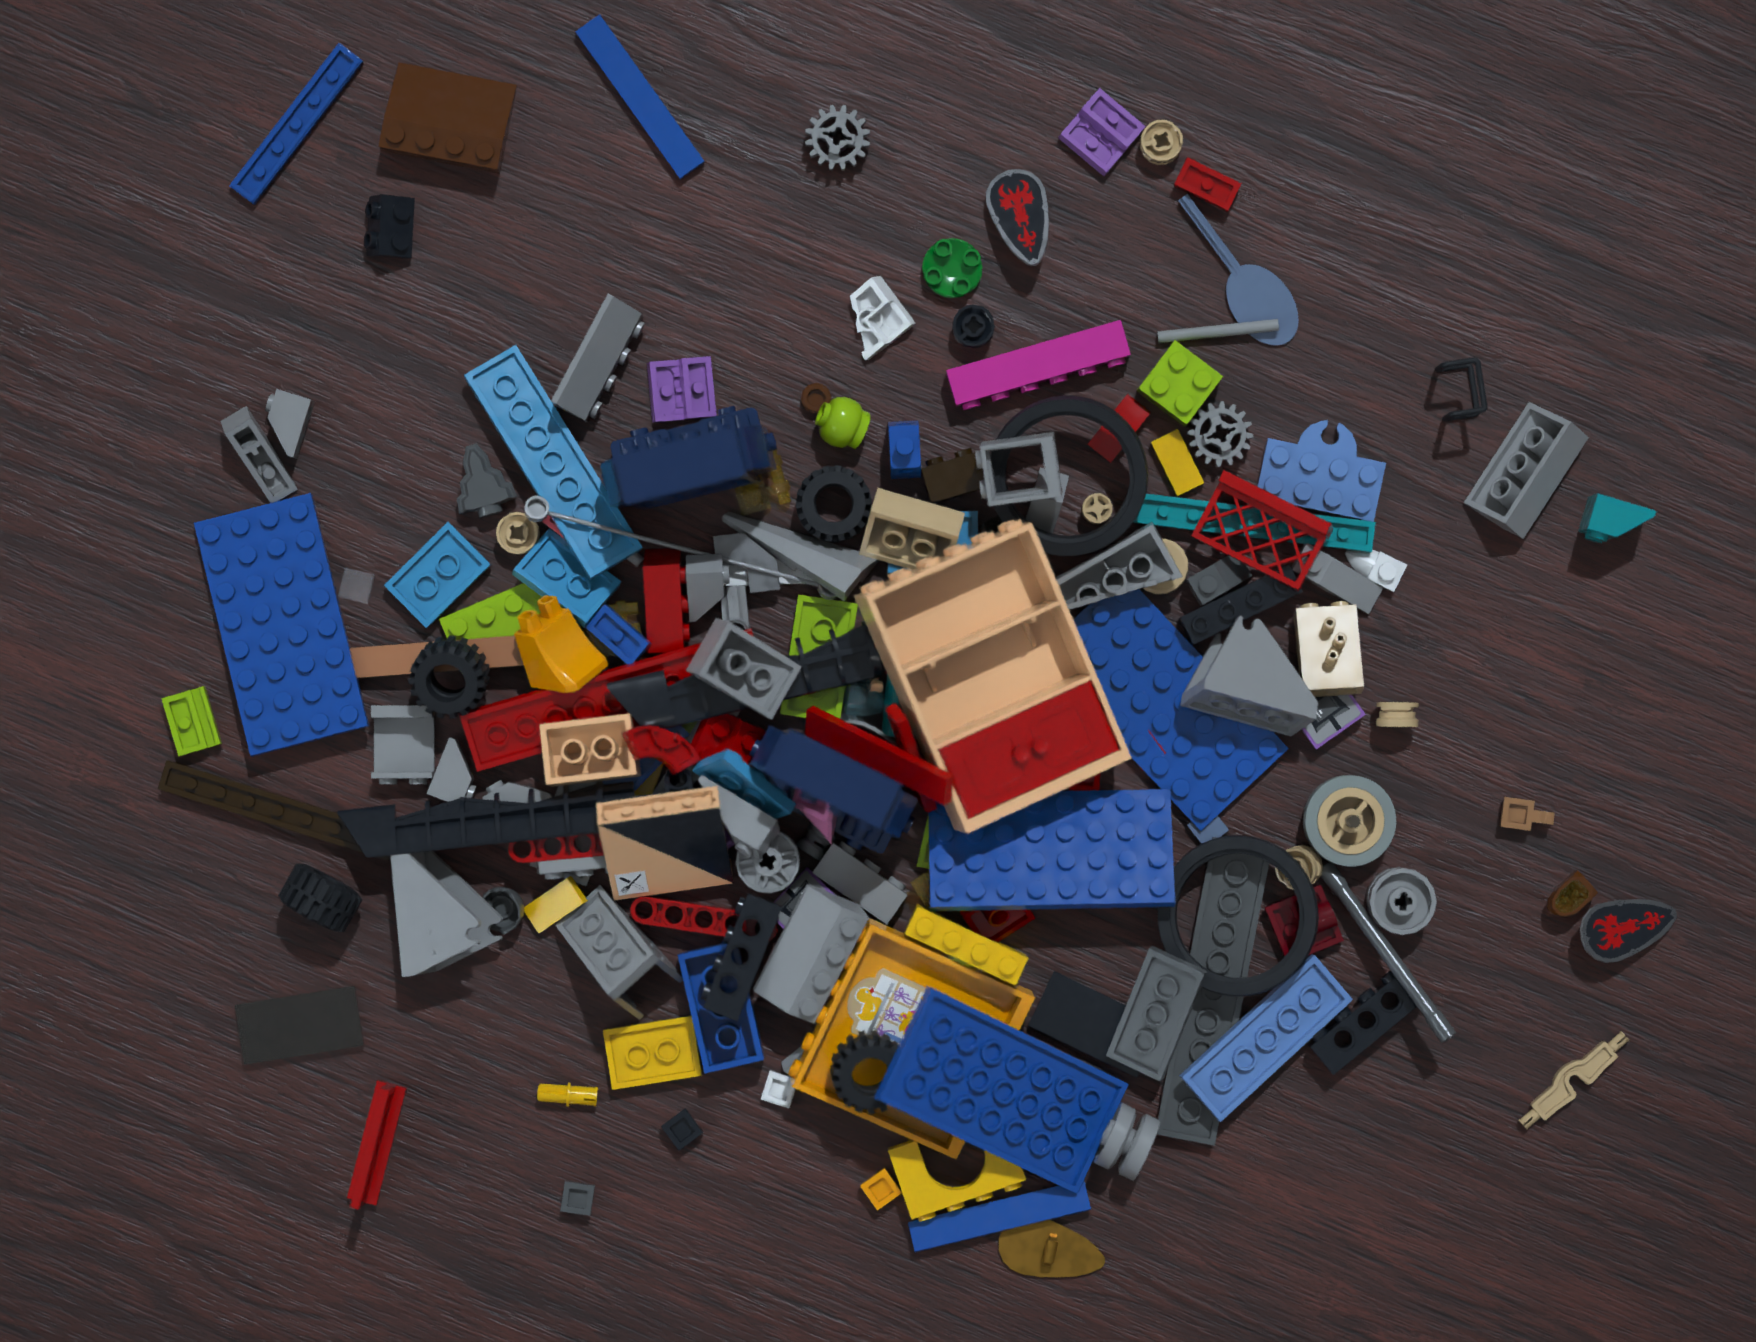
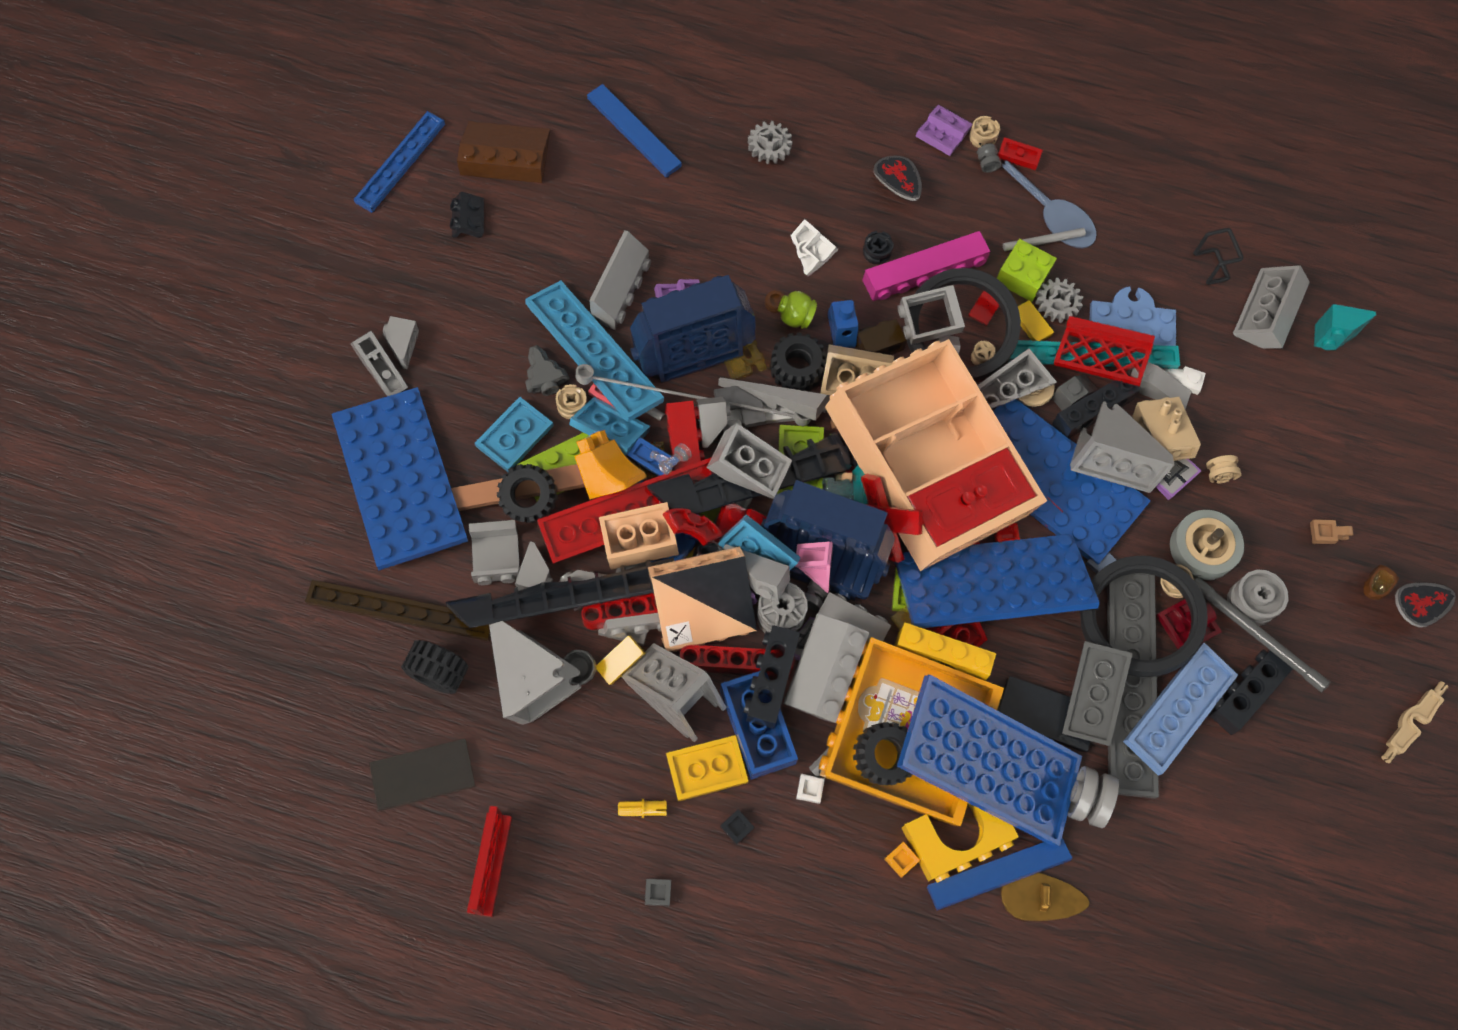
camera: 15 degrees left, 20 degrees down
(191, 721) = (331, 551): lime plate -> none
(356, 585) = (454, 448): clear tile -> none
(636, 653) = (681, 453): none -> clear piece
(952, 268) = (858, 214): green dish -> none
(1159, 189) = (989, 159): none -> dark grey wheel

